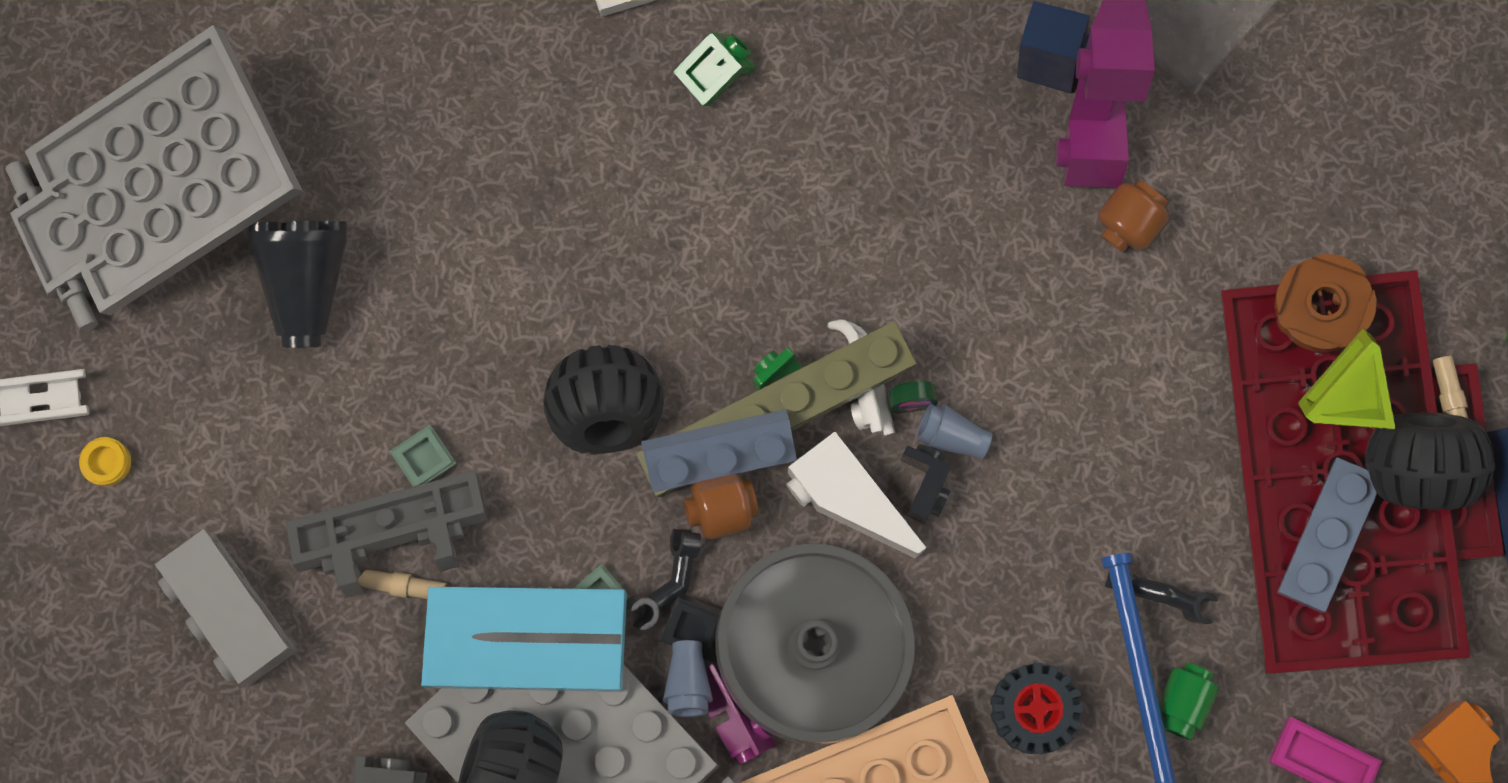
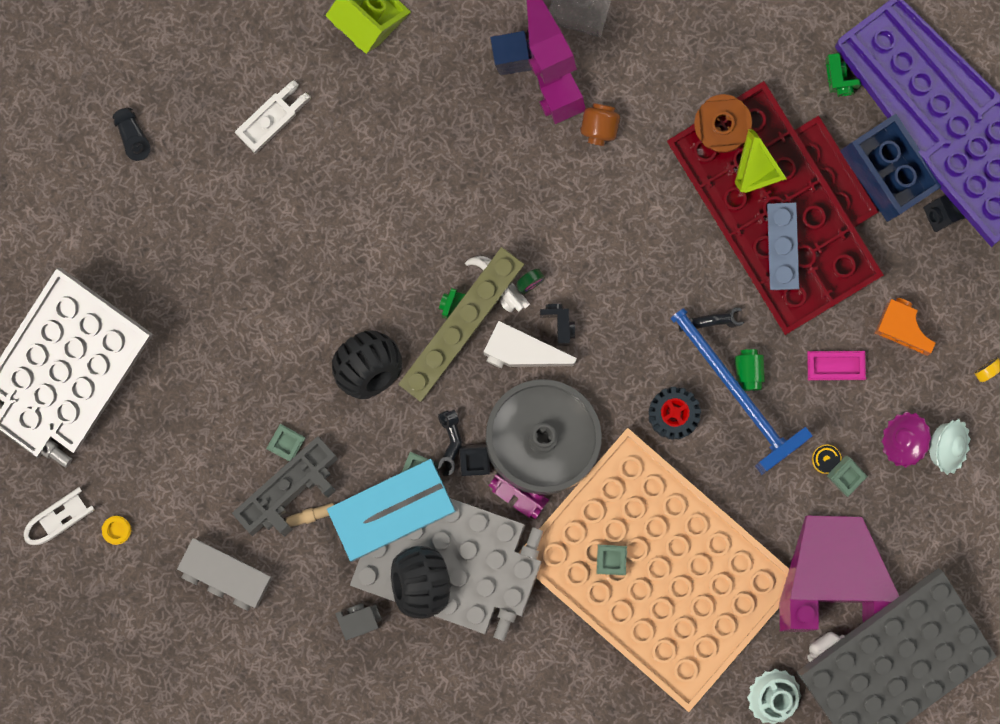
camera: 25 degrees left, 5 degrees up
(299, 275) = (169, 379): black cone -> none
(687, 681) = (488, 491): sand blue cone -> none
(714, 66) = (333, 151): bracket -> none
(719, 450) = (443, 361): sand blue plate -> none
(721, 506) = (458, 389): dark orange head -> none
(952, 432) = (560, 289): sand blue cone -> none
(1430, 461) = (815, 182): black wheel -> none
(1452, 397) = (814, 142): tan piece -> none

